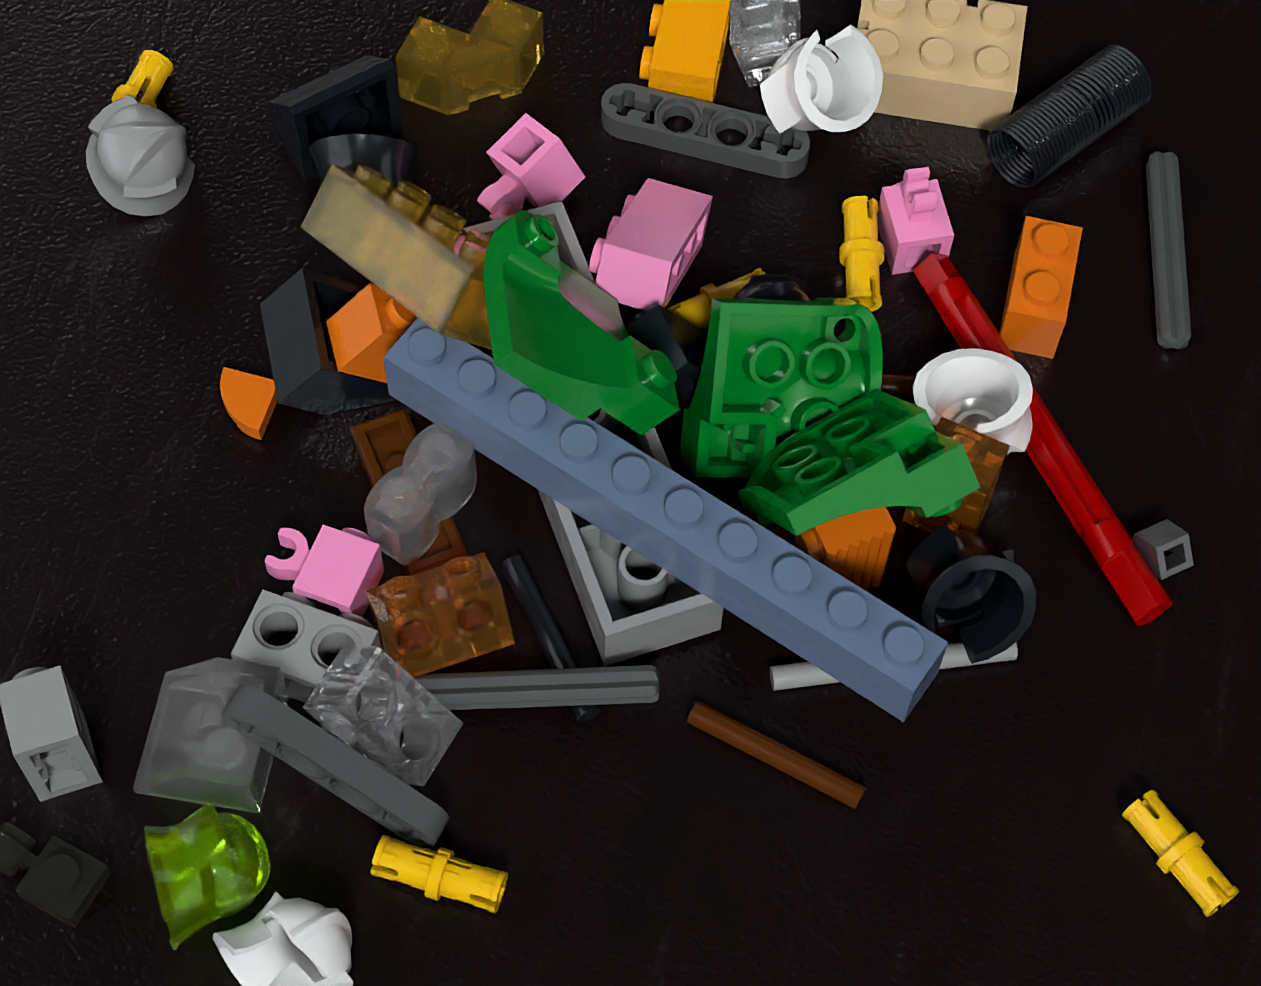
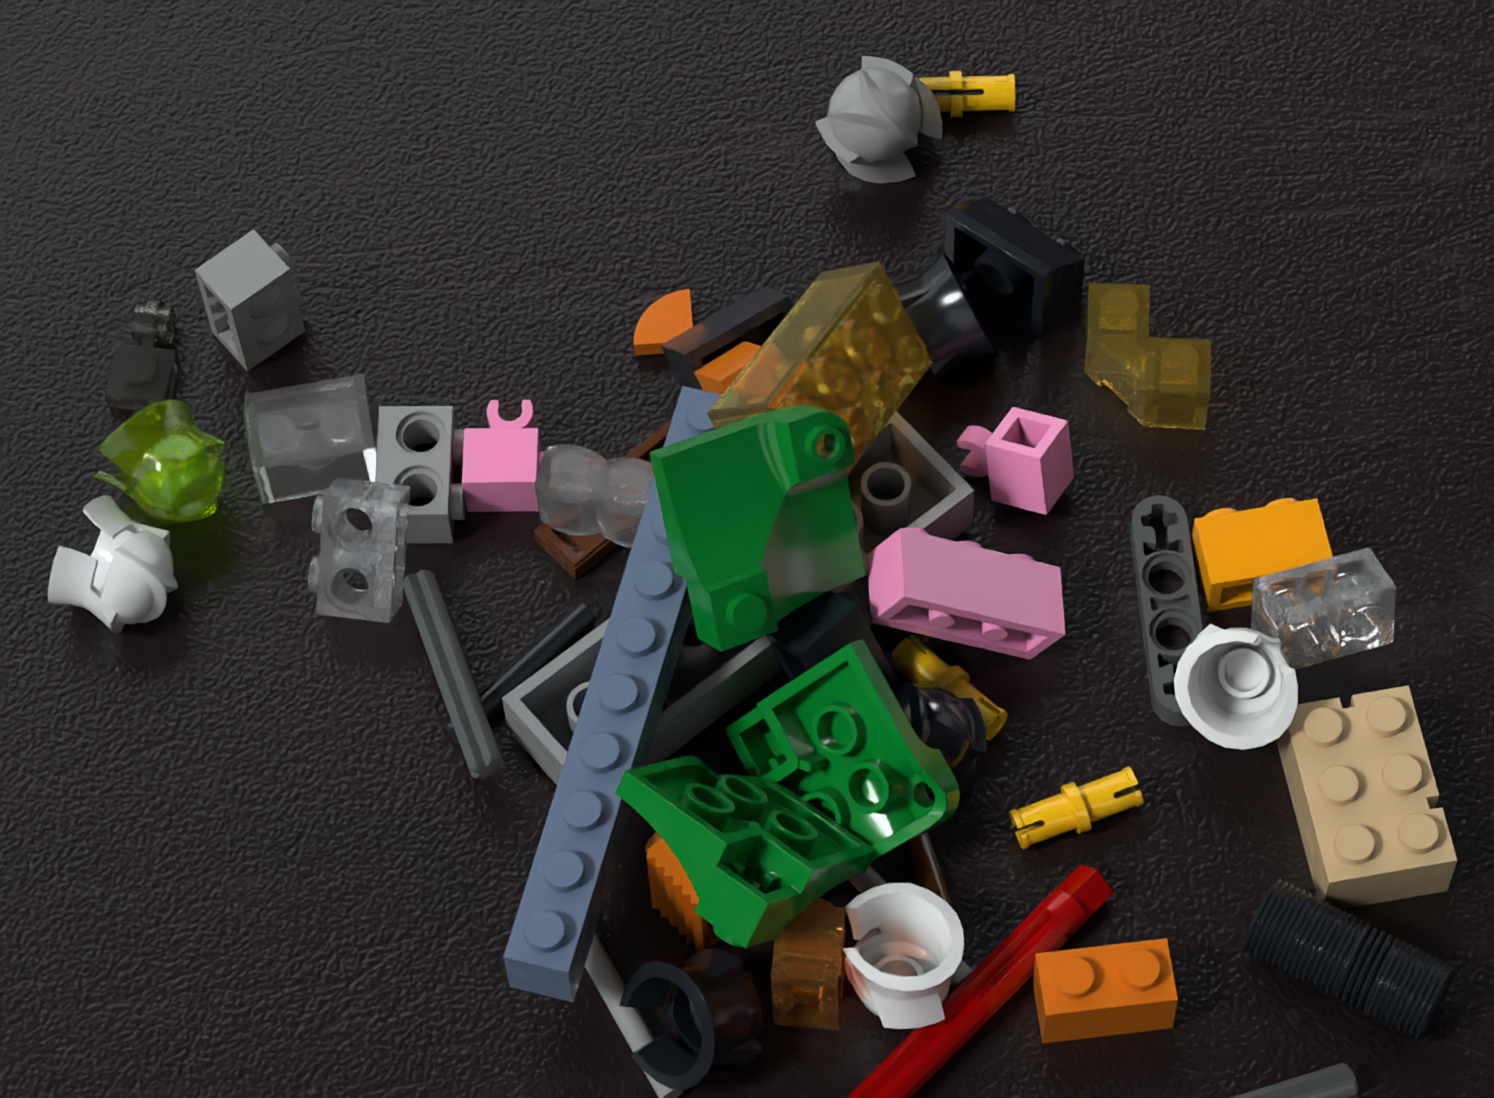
camera: 75 degrees right, 0 degrees up
(335, 766) = (294, 535): dark grey beam -> none
(439, 873) = (246, 663): yellow pin -> none
(442, 625) = (487, 563): clear orange brick -> none
(776, 754) = (472, 912): reddish brown bar -> none
(913, 221) = (1132, 844): bright pink brick -> none

